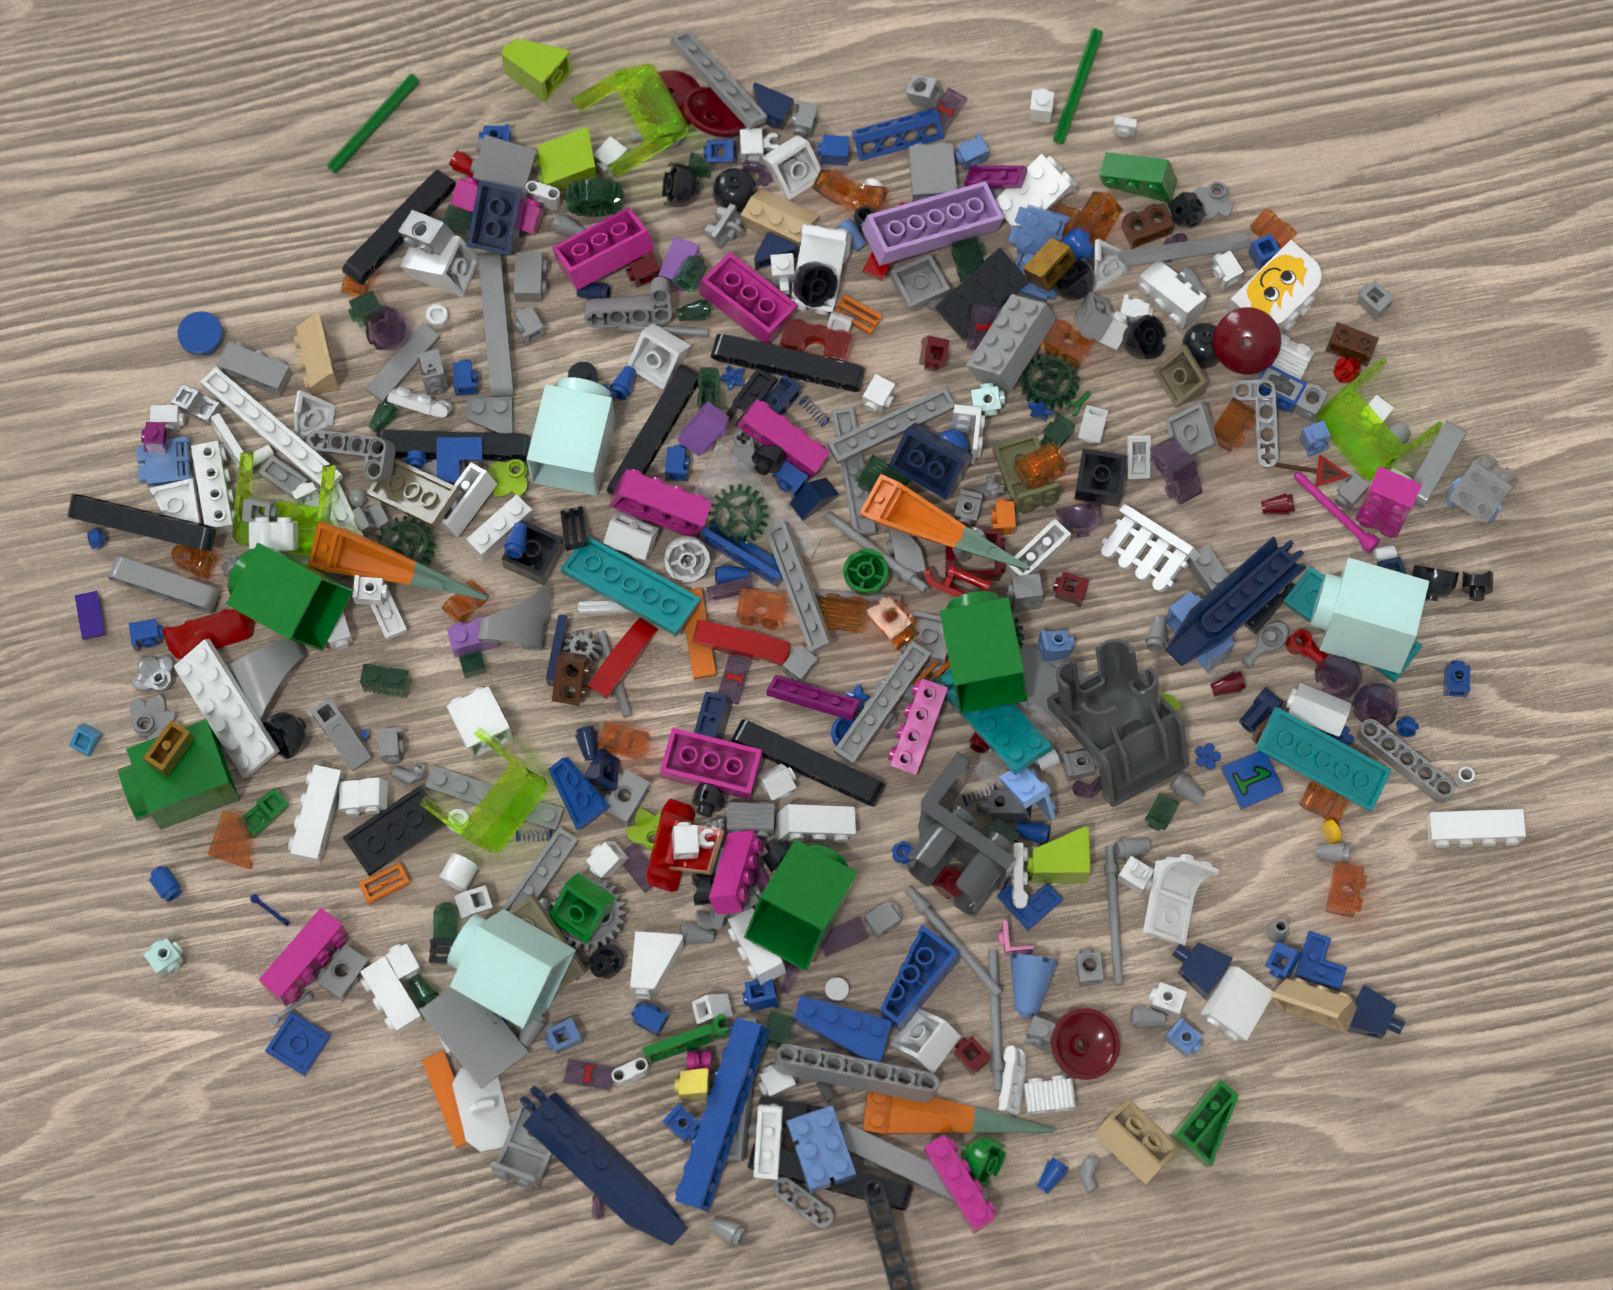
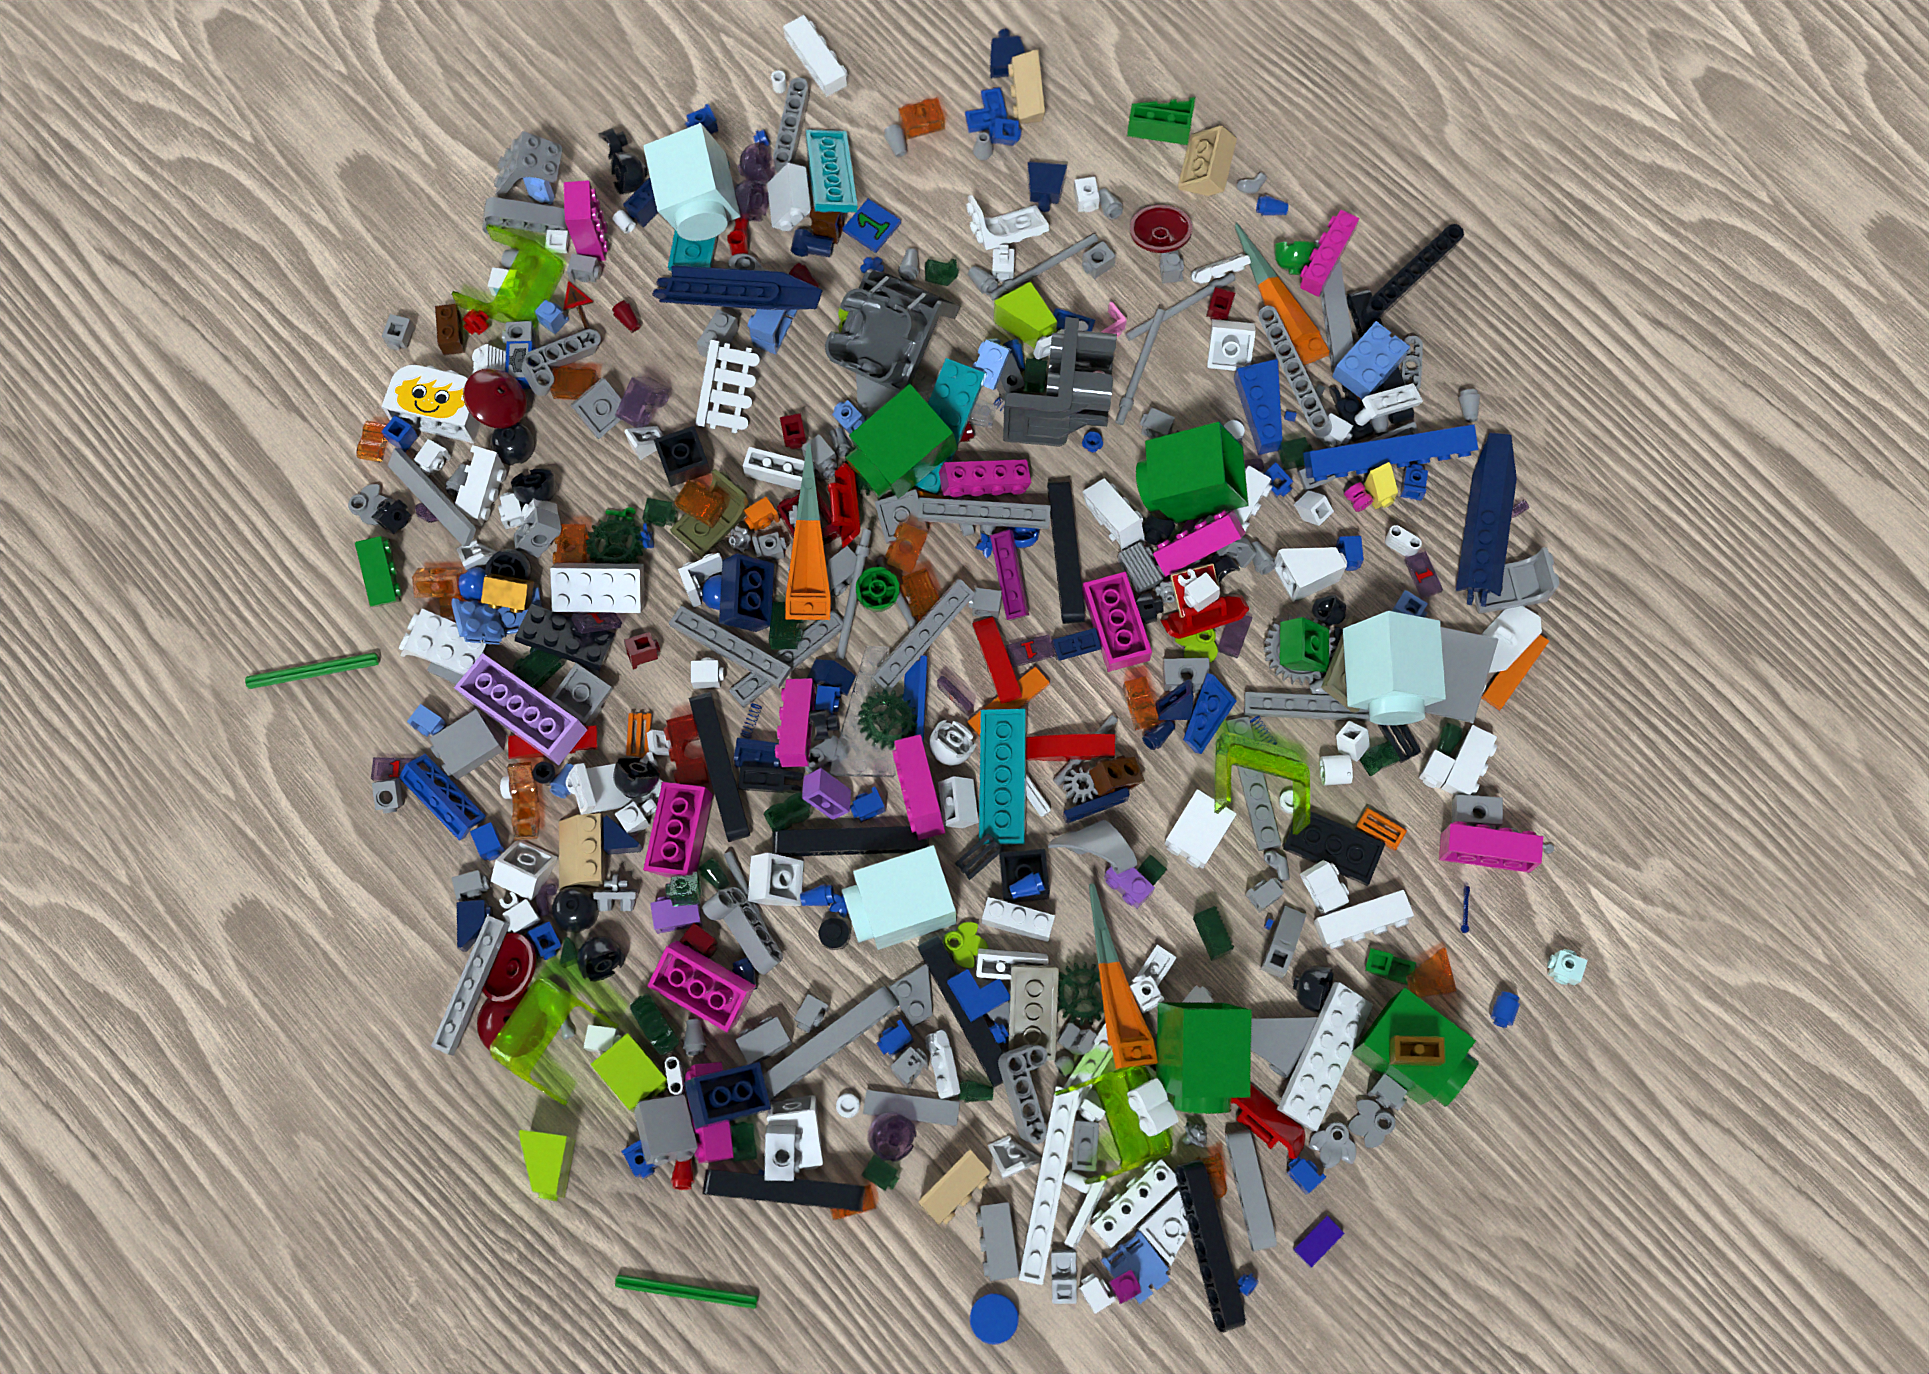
camera: 120 degrees left, 0 degrees up
(85, 739) = (1427, 1168): dark azure slope -> none
(252, 509) = (1133, 1141): light grey brick -> none
(298, 1043) = (1555, 815): blue tile -> none
(460, 606) = (1111, 909): clear orange axle -> none
(606, 859) = (1247, 657): white brick -> none
(686, 1041) = (1356, 511): green tile -> none
(729, 573) = (943, 704): blue cone -> none
(733, 377) = (758, 807): blue plant -> none
(752, 599) = (951, 649): clear orange brick -> none
(777, 782) = (1097, 563): white brick -> none
(918, 977) = (1188, 372): blue wedge -> none
(979, 399) = (661, 581): light aqua brick -> none
(997, 176) = (443, 684): magenta tile -> none
(1030, 982) = (1135, 292): medium blue cone -> none
(1035, 624) = (839, 442): none -> light grey pin
(1041, 105) = (349, 687): white brick -> none
(1049, 1095) = (1214, 237): white brick -> none
(1073, 770) = (938, 356): light grey brick -> none
(1080, 518) = (726, 454): clear purple cylinder -> none
(1087, 790) = (954, 335): clear purple arm -> none
(1093, 424) = (636, 487): white brick -> none
(1124, 126) = (335, 608): white plate -> none
(1149, 230) = (424, 540): reddish brown brick -> none
(1157, 635) = (794, 349): light grey cone -> none
(1175, 1038) = (1108, 170): medium blue brick -> none
(1181, 377) = (552, 443): dark tan slope -> none
(1236, 1004) = (1061, 143): white brick -> none
(1323, 802) = (861, 164): clear orange axle -> none
(1331, 831) = (880, 149): yellow tile -> none
(1366, 540) = (620, 238): dark pink piece -> none

